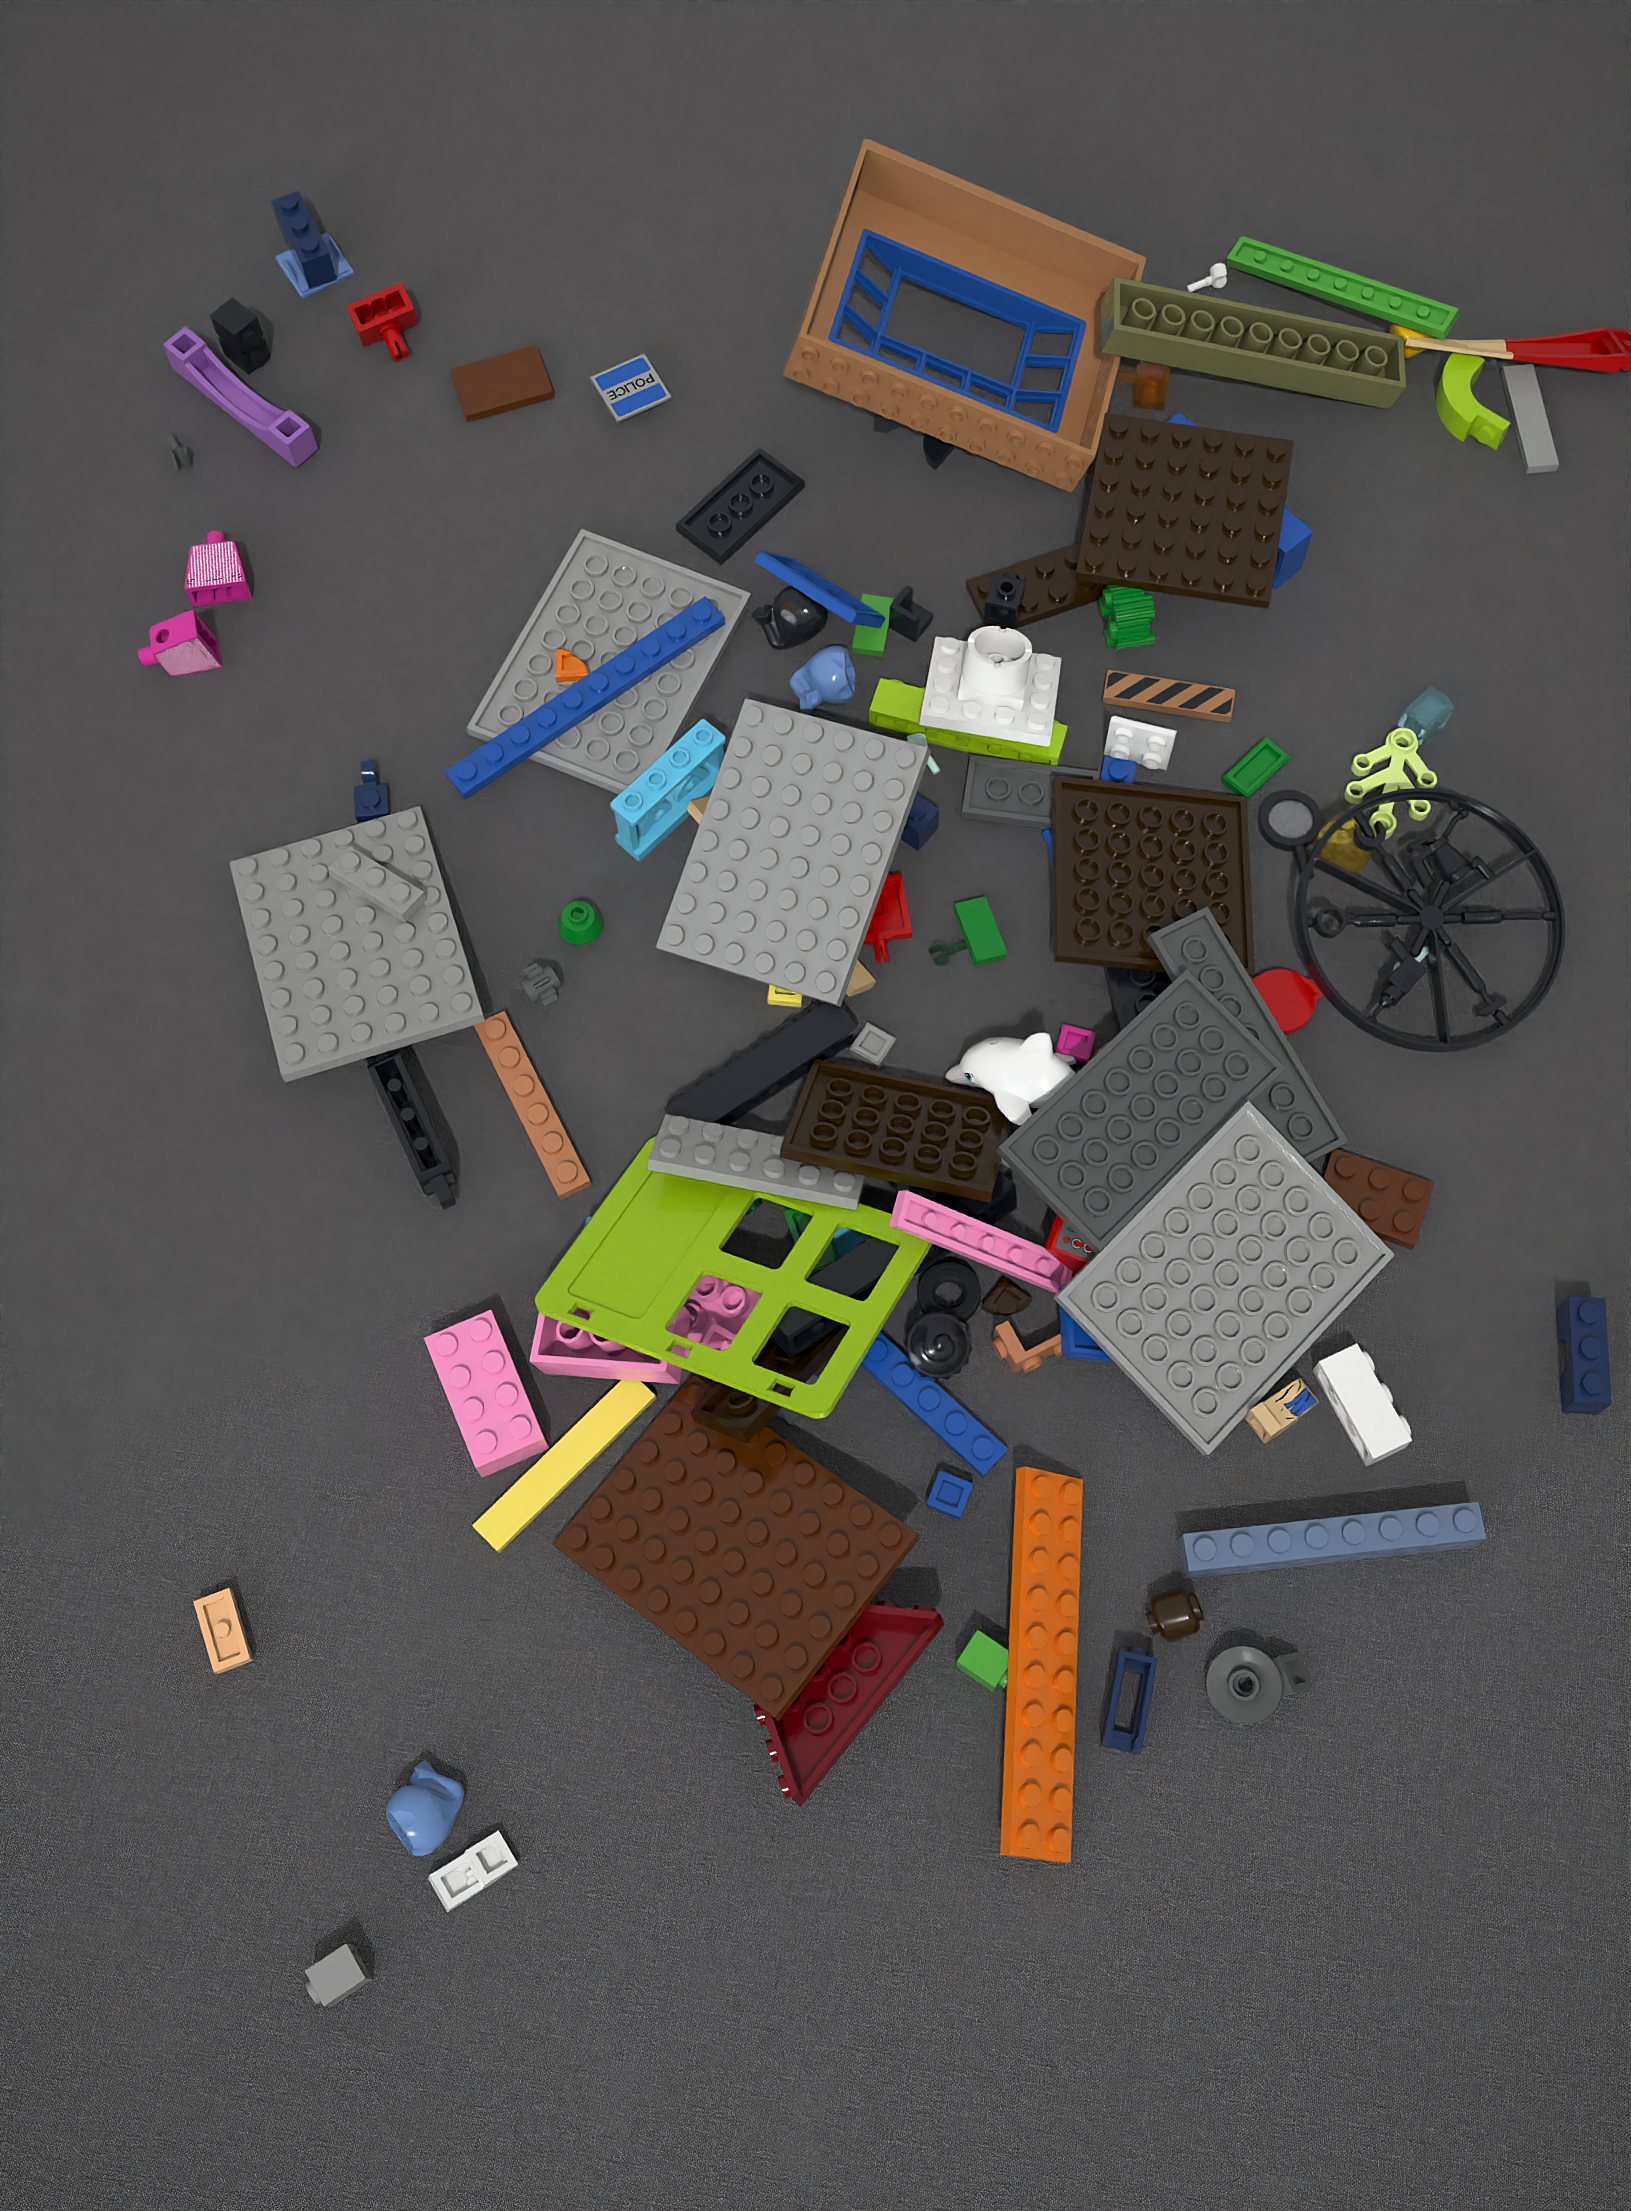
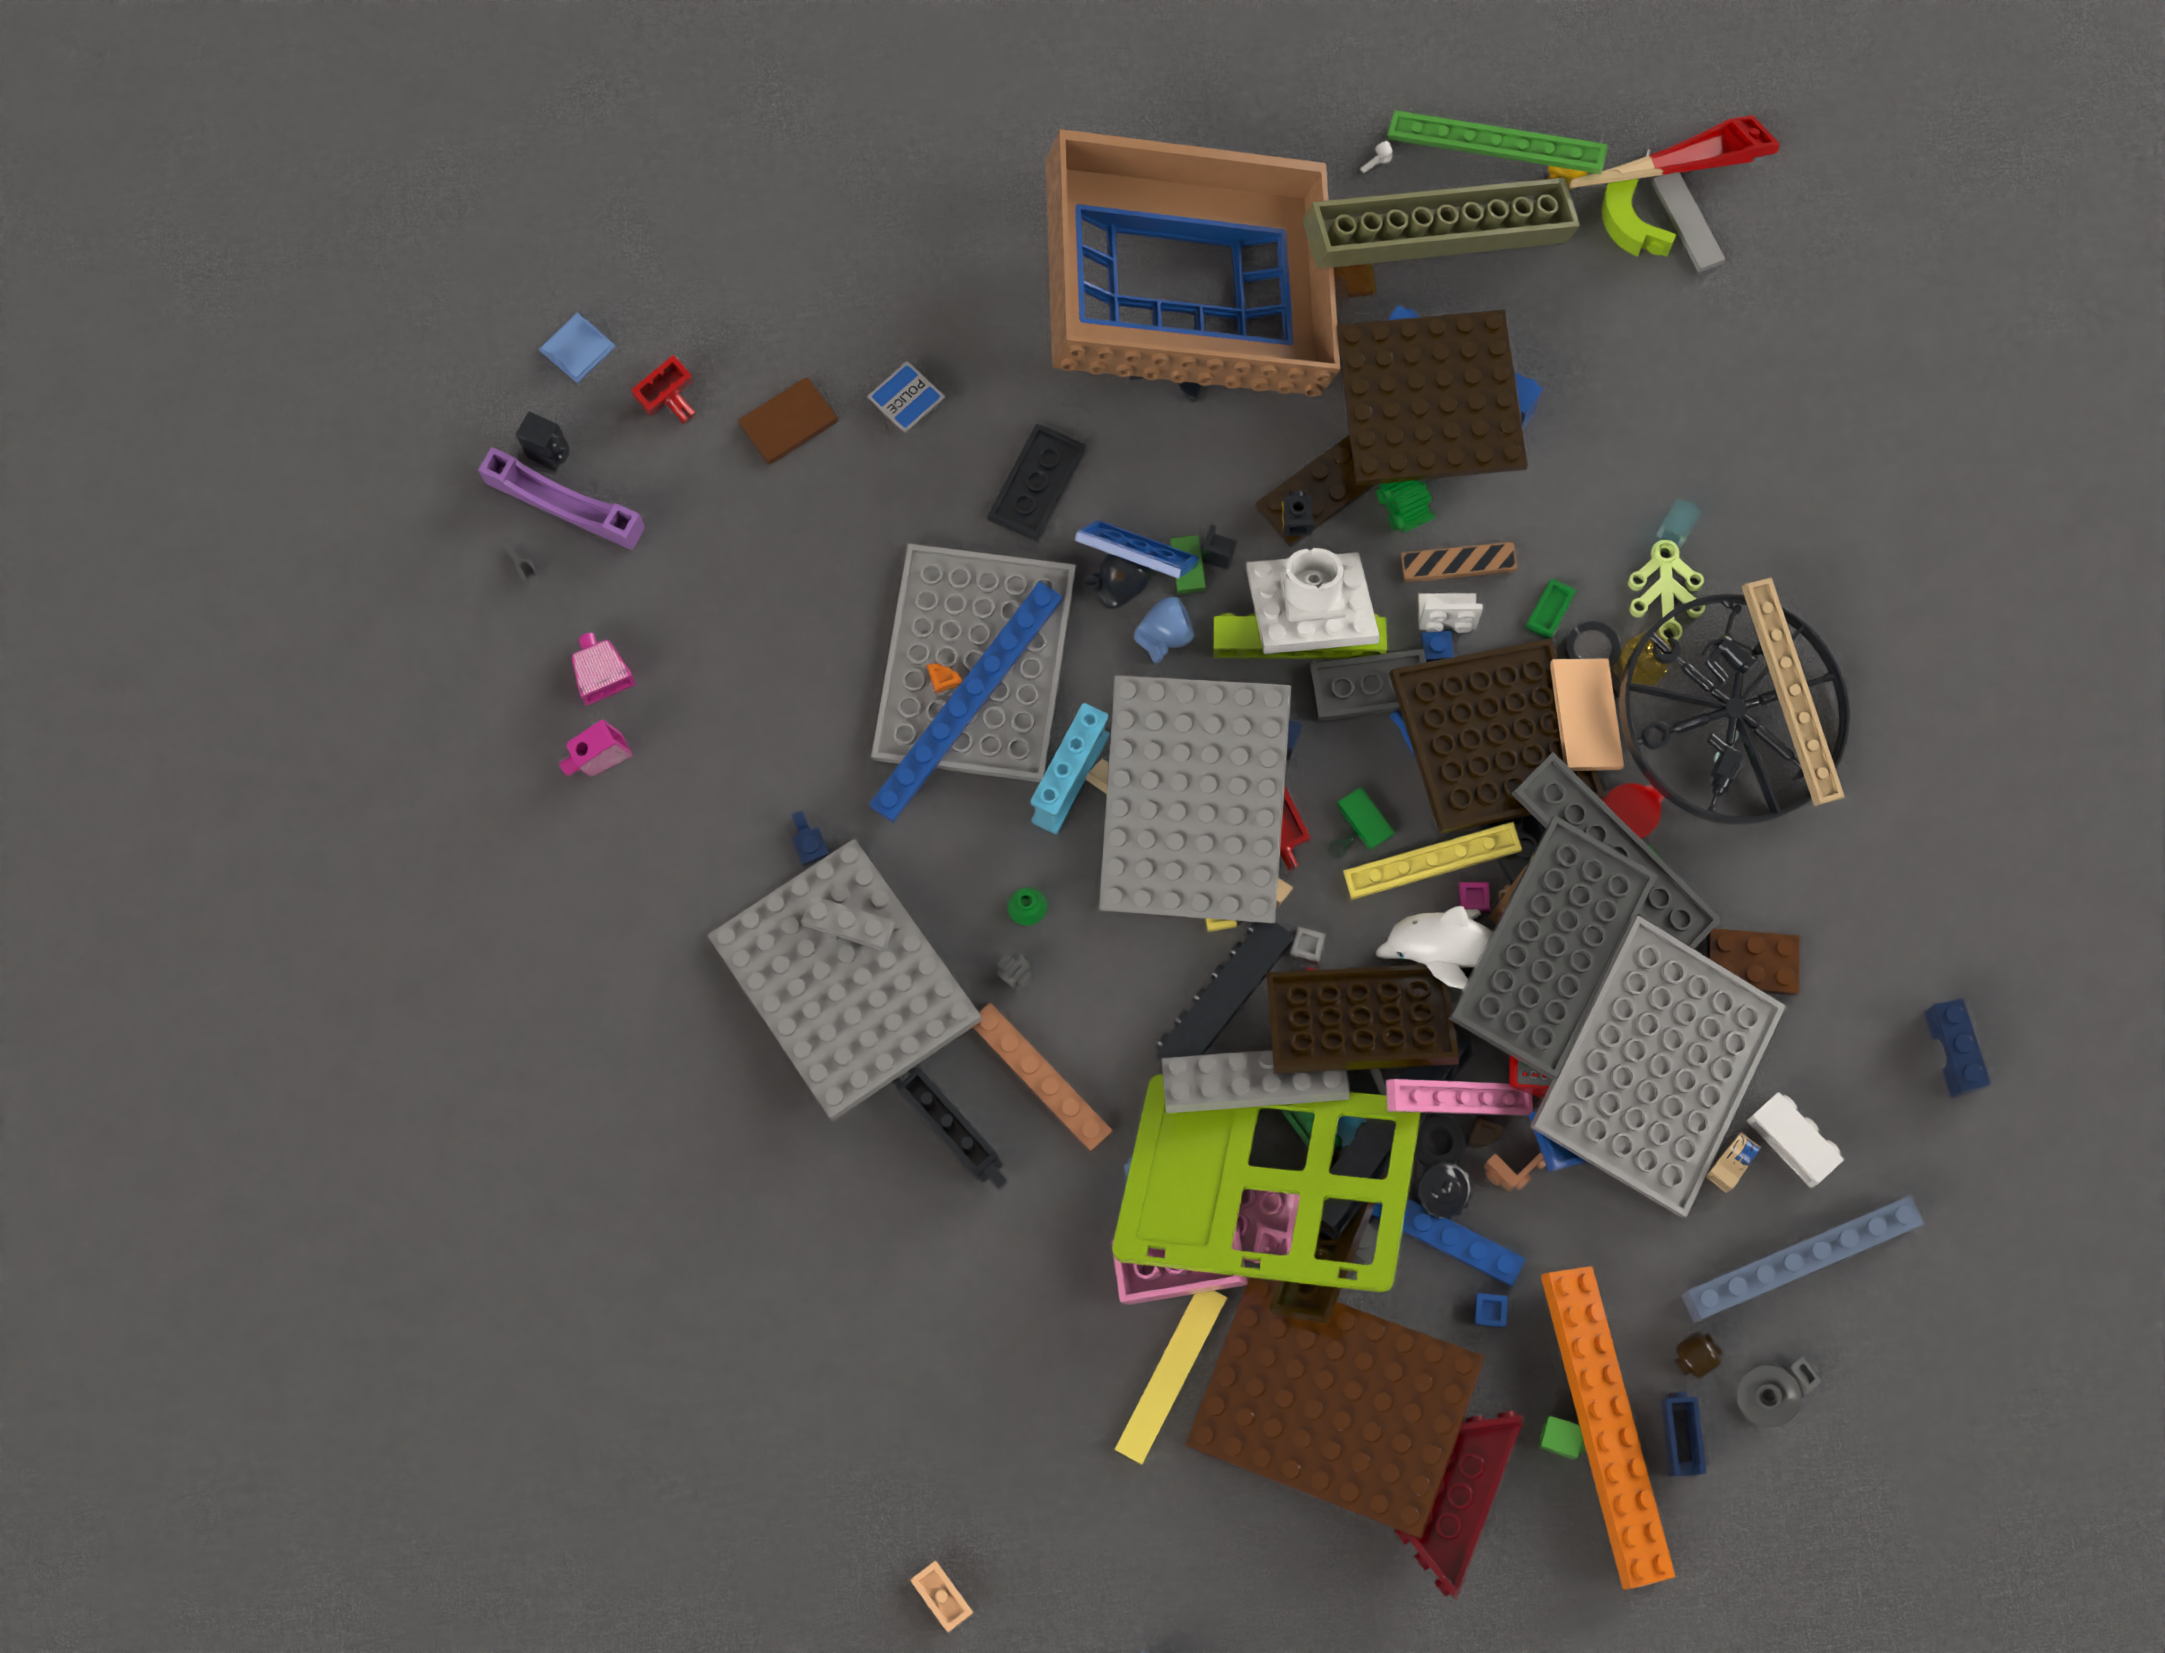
camera: 15 degrees left, 5 degrees up
(303, 239) = (564, 330): dark blue brick -> none
(486, 1393) = (1089, 1336): bright pink brick -> none
(920, 739) = (1262, 664): light aqua hand -> none
(1039, 992) = (1432, 860): none -> light yellow tile
(1260, 883) = (1586, 714): none -> light nougat tile
(1501, 917) = (1793, 691): none -> tan tile

